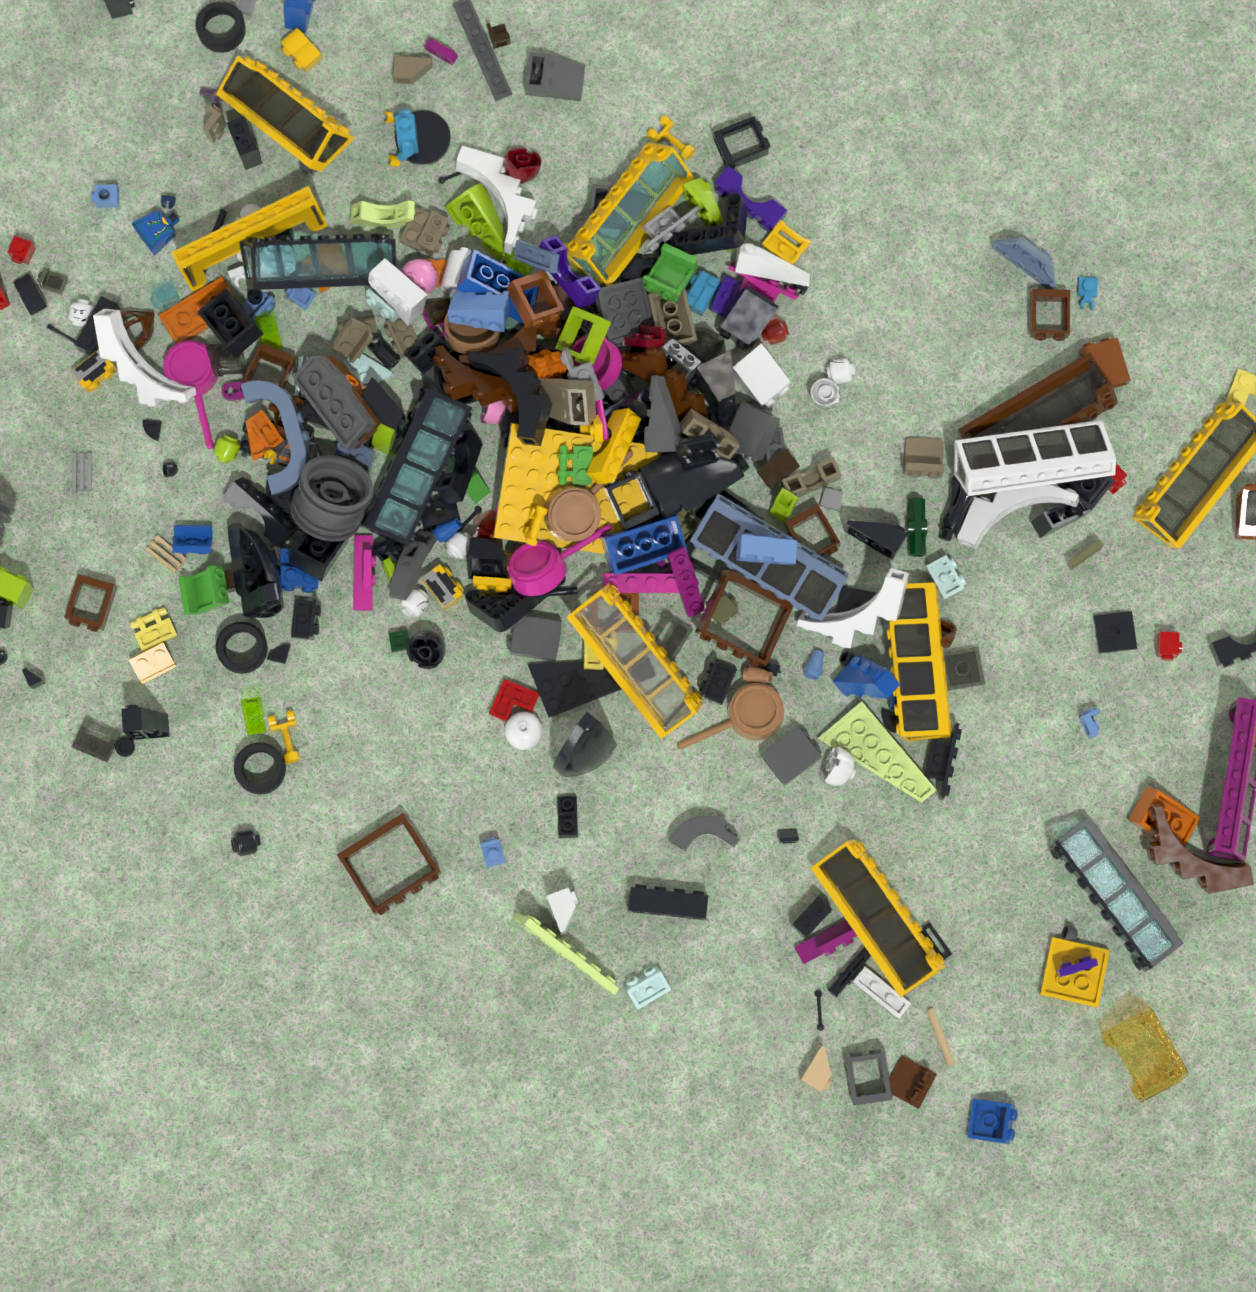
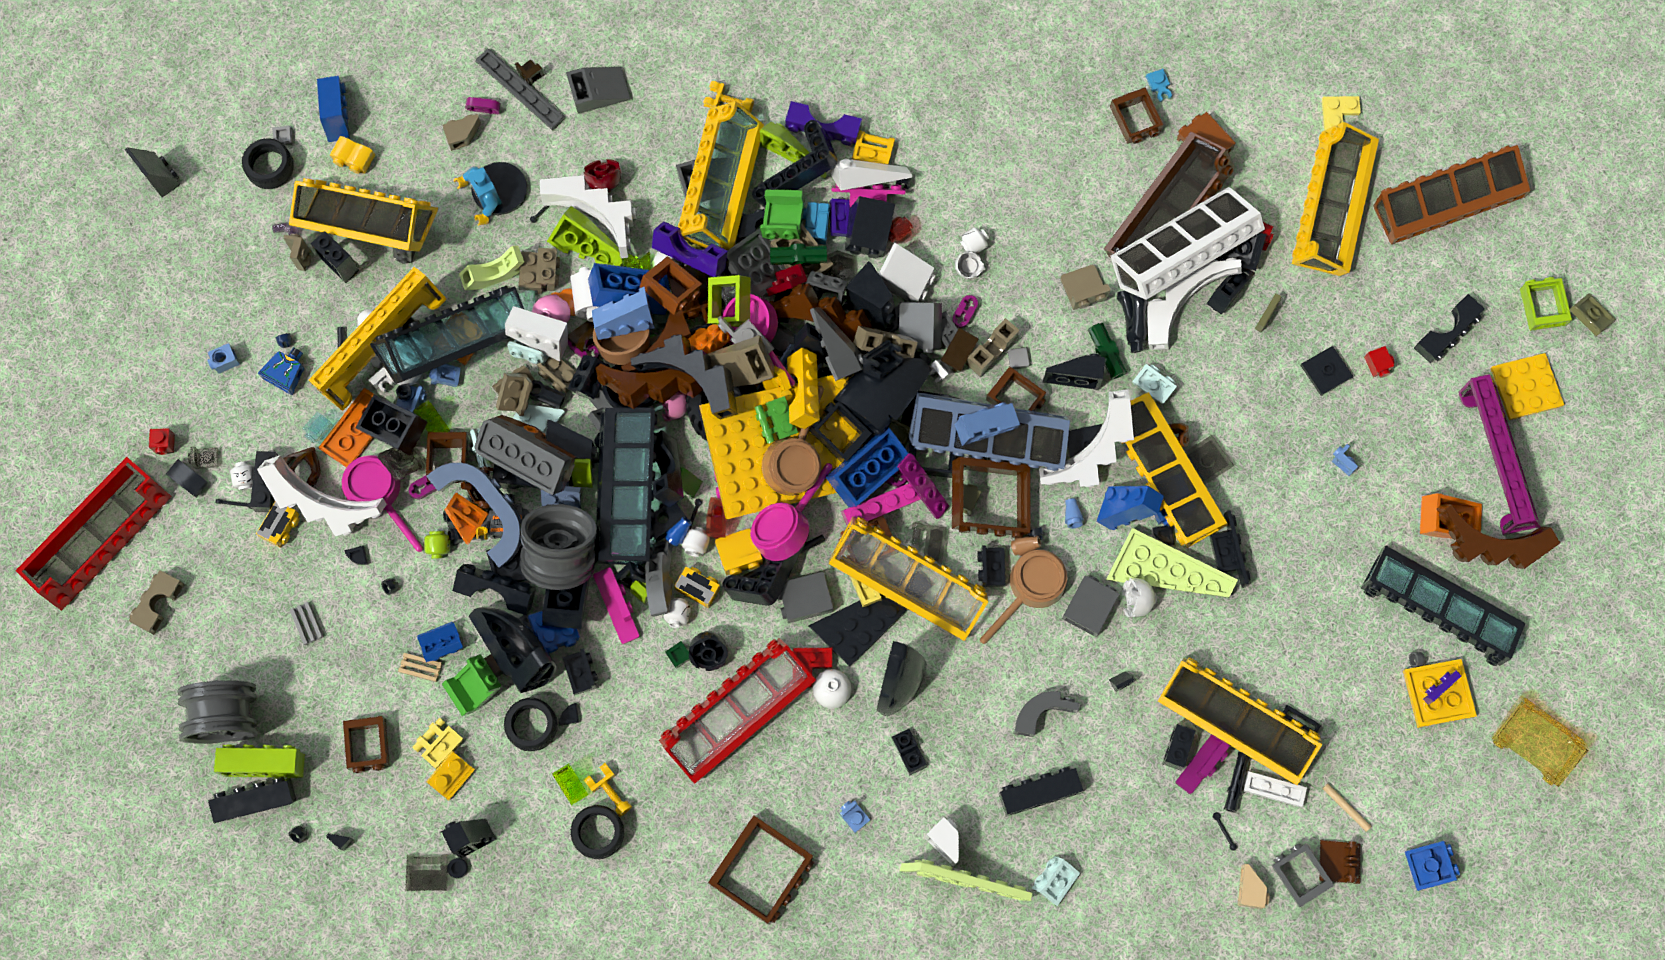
camera: 25 degrees left, 5 degrees down
(245, 842) = (614, 909): black head -> none
(428, 713) = (736, 710): none -> window
(486, 559) = (728, 543): black slope -> none
(531, 532) = (762, 497): yellow plate -> none
(536, 256) = (654, 247): sand blue tile -> none
(664, 224) = (758, 175): light grey bracket -> none
(667, 318) = (798, 254): none -> dark green piece
(718, 137) = (780, 90): black window -> none
(755, 481) = (942, 369): none -> white tile
(783, 505) = (979, 380): lime slope -> none
(804, 437) = (968, 313): none -> magenta beam
(846, 657) = (1098, 494): black hinge -> none
(1028, 258) = (1095, 76): sand blue wedge -> none

